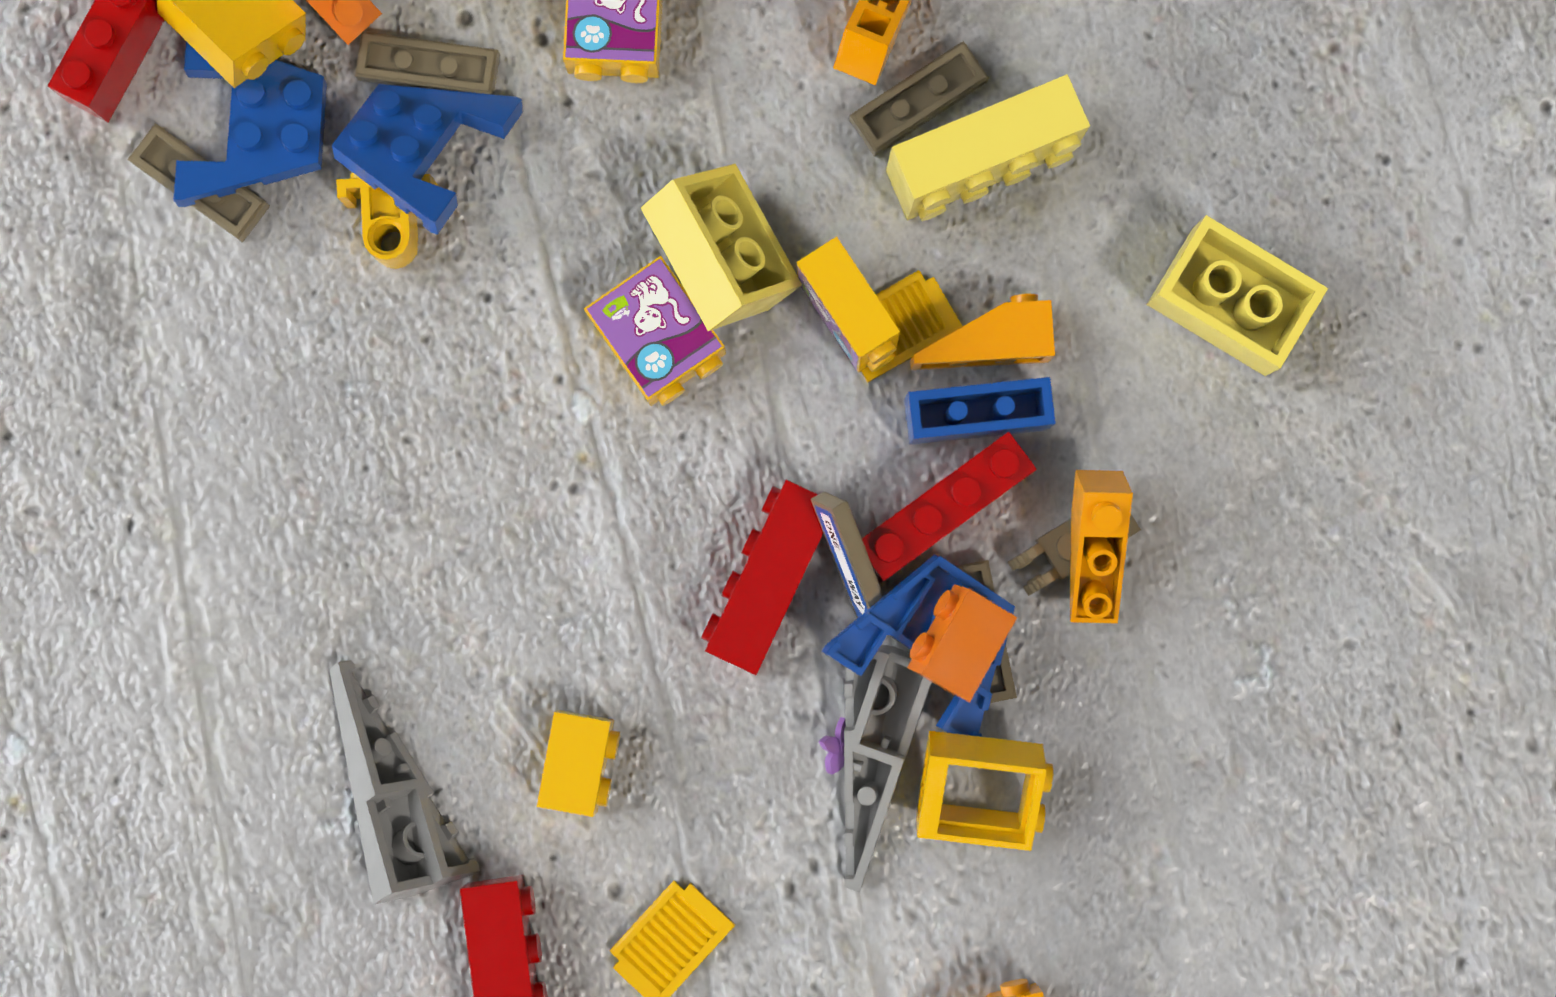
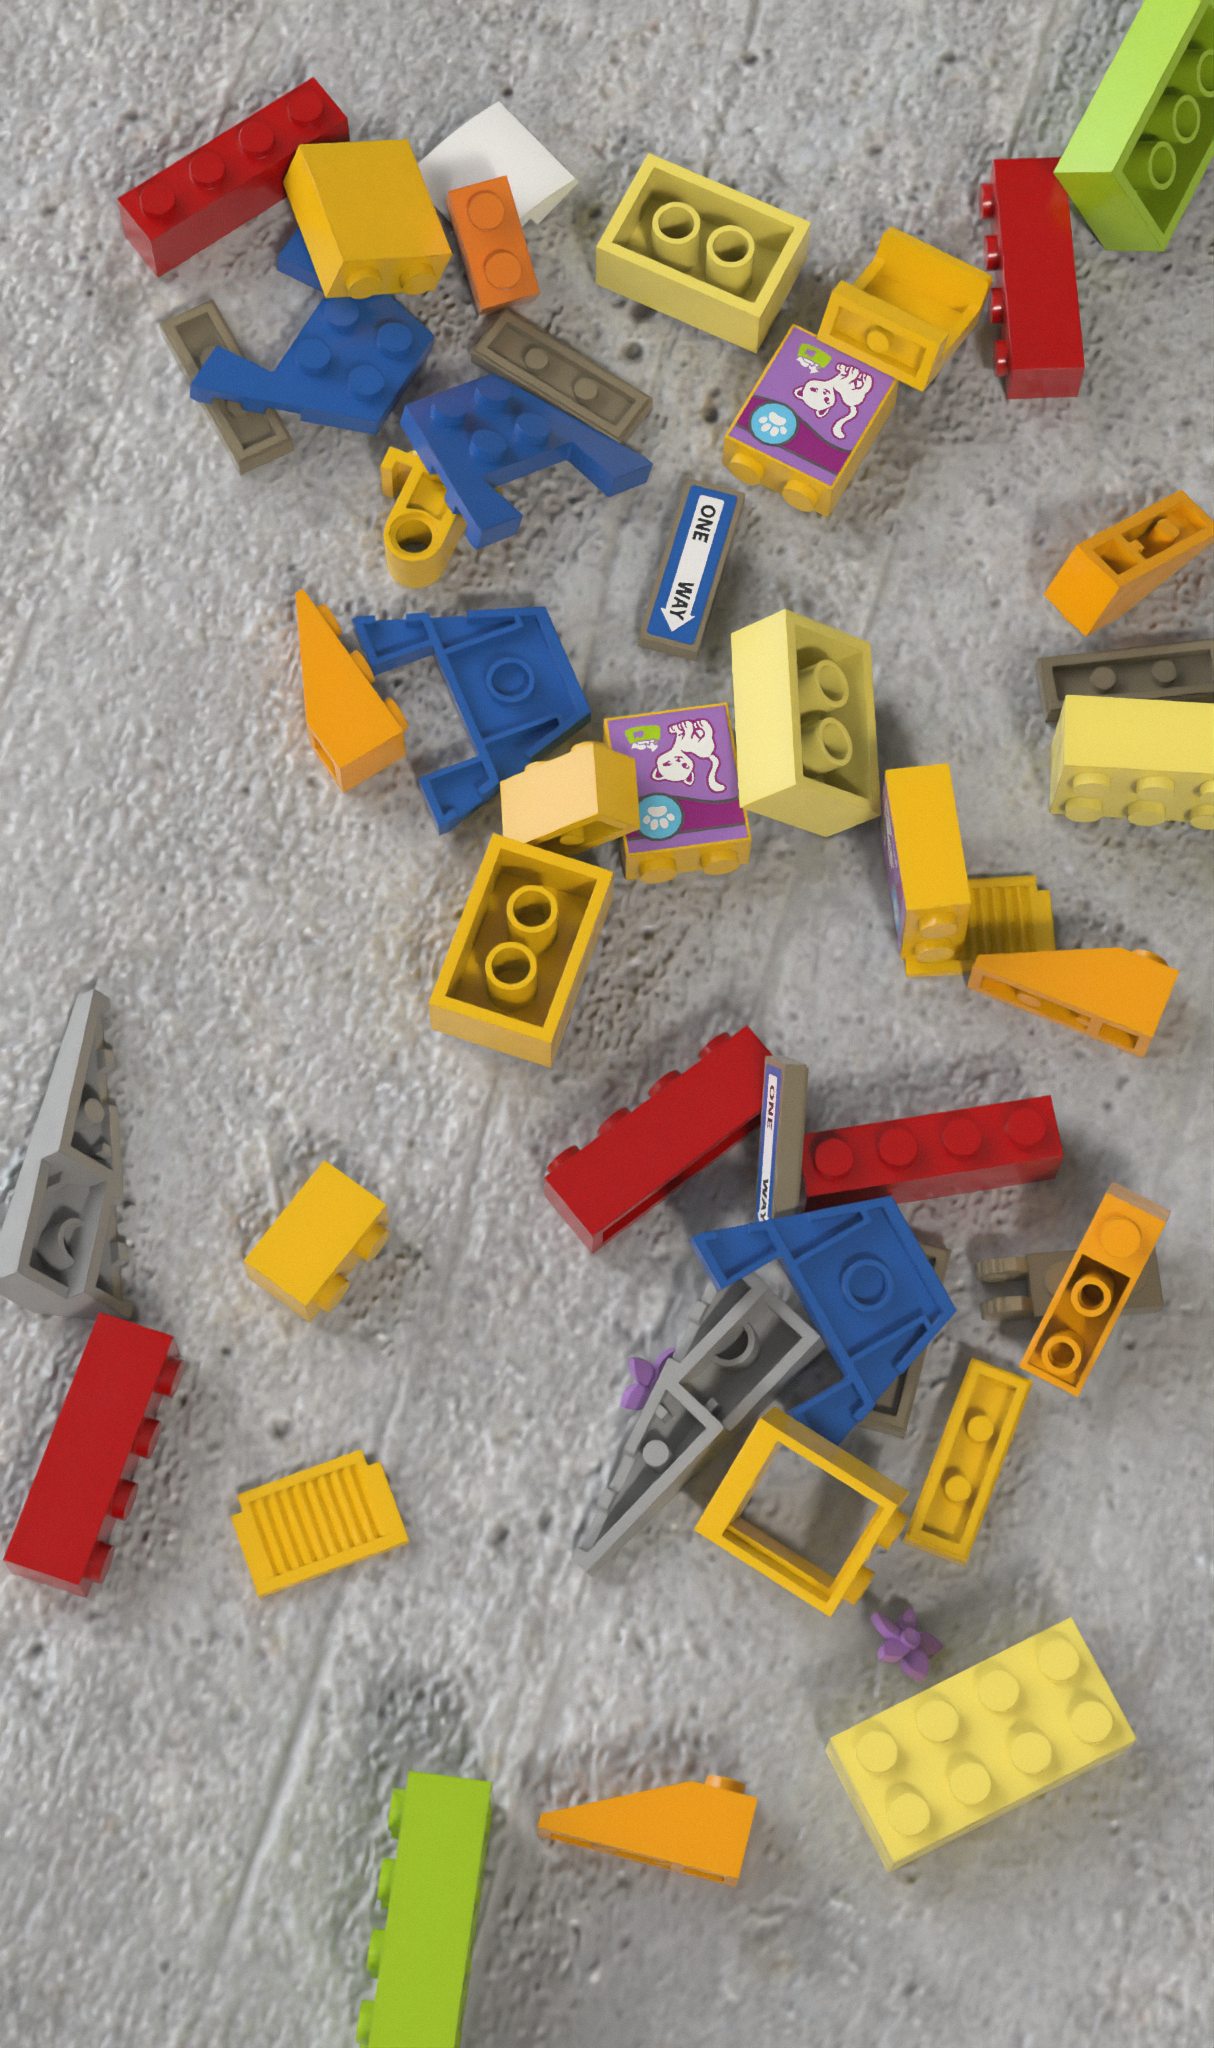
camera: 30 degrees right, 15 degrees down
(400, 385) = (345, 716): none -> light orange slope
(503, 310) = (505, 684): none -> blue wing
(585, 162) = (691, 569): none -> tile
(590, 380) = (572, 800): none -> yellow brick
(609, 498) = (521, 950): none -> yellow brick
(960, 641) = (866, 1304): orange brick -> none
(979, 410) = (1025, 1059): blue brick -> none
(1063, 694) = (967, 1462): none -> yellow tile
(1082, 837) = (906, 1644): none -> medium lavender plant
(1162, 881) = (979, 1744): none -> light yellow brick

